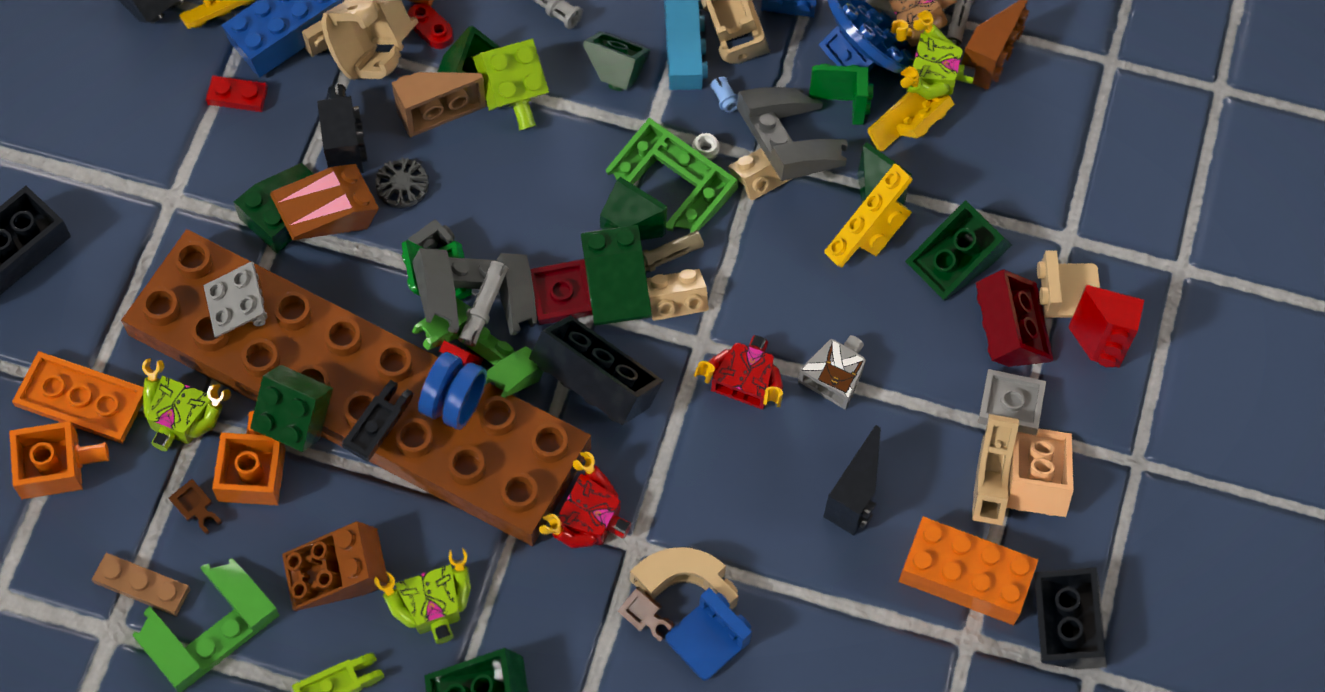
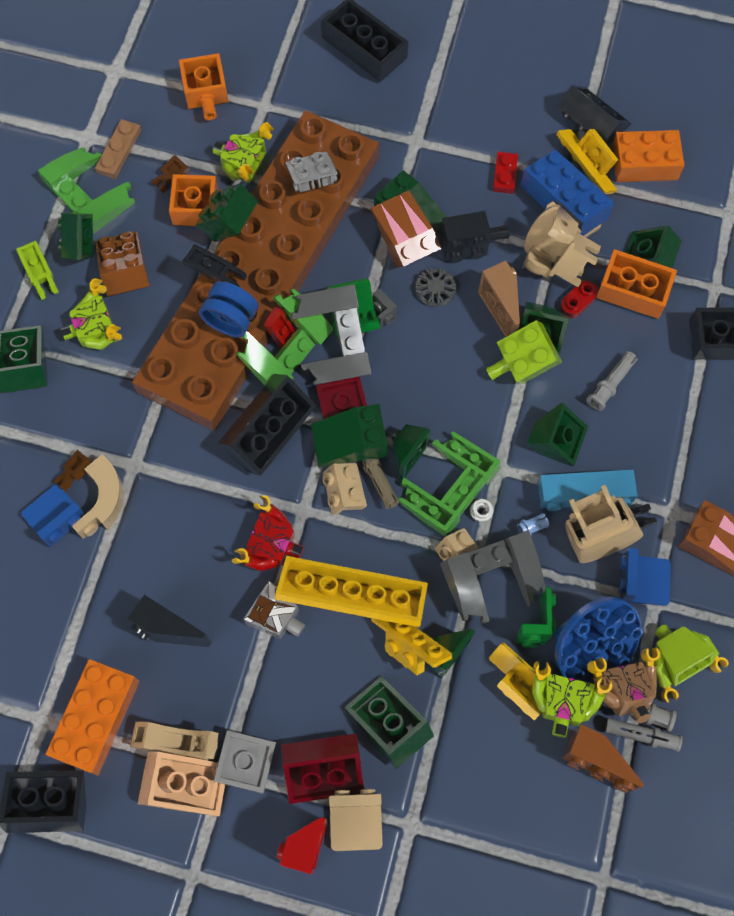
camera: 90 degrees right, 5 degrees up
(79, 395) = (254, 97): orange plate -> none
(299, 618) = (76, 235): none -> dark green slope
(479, 313) = (310, 336): light grey pin -> none
(588, 511) = (156, 426): red torso -> none
(812, 280) = (352, 591): none -> yellow arch

